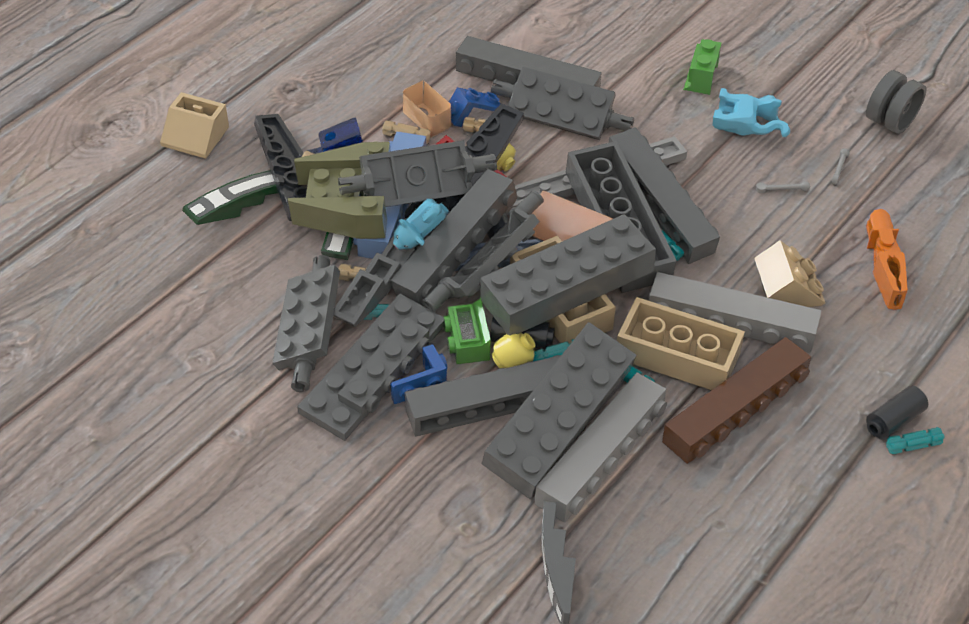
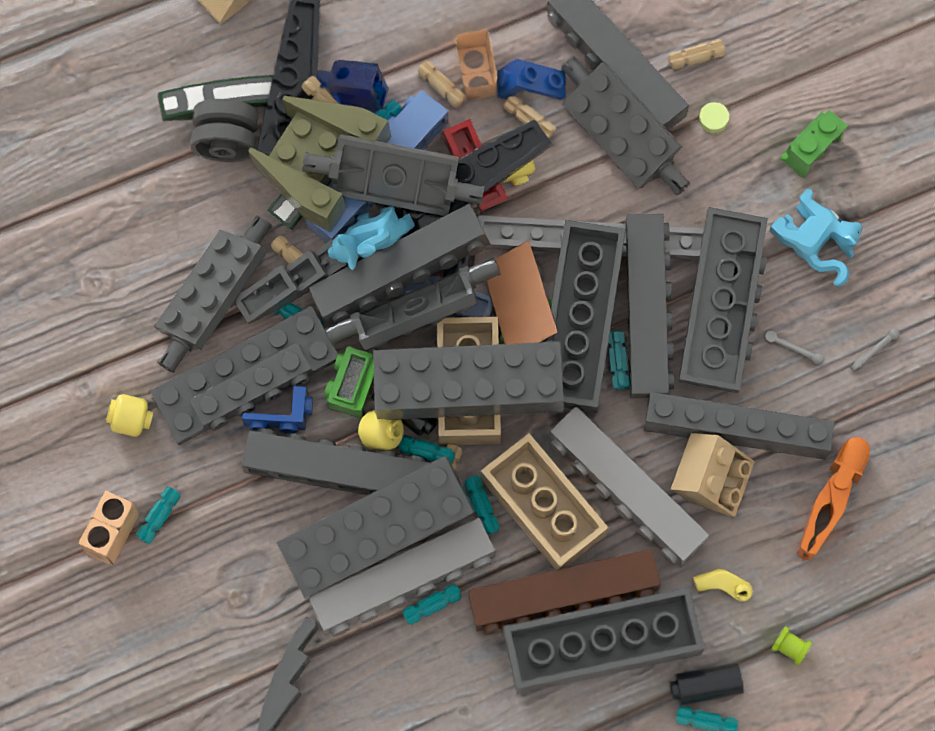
camera: 30 degrees right, 25 degrees up
(254, 208) = (224, 130): none -> dark grey wheel
(289, 430) = (129, 415): none -> light yellow head
(322, 541) = (117, 538): none -> light nougat piece
(360, 494) = (158, 515): none -> teal axle
(583, 51) = (696, 54): none -> tan axle
(621, 82) = (714, 117): none -> yellowish green tile
(638, 457) = (432, 604): none -> teal axle
(715, 171) = (724, 300): none -> dark grey plate
(794, 416) = (603, 640): none -> dark grey brick
(809, 234) = (740, 425): none -> dark grey brick
(854, 343) = (725, 581): none -> light yellow arm
(936, 361) = (791, 646): none -> lime bush

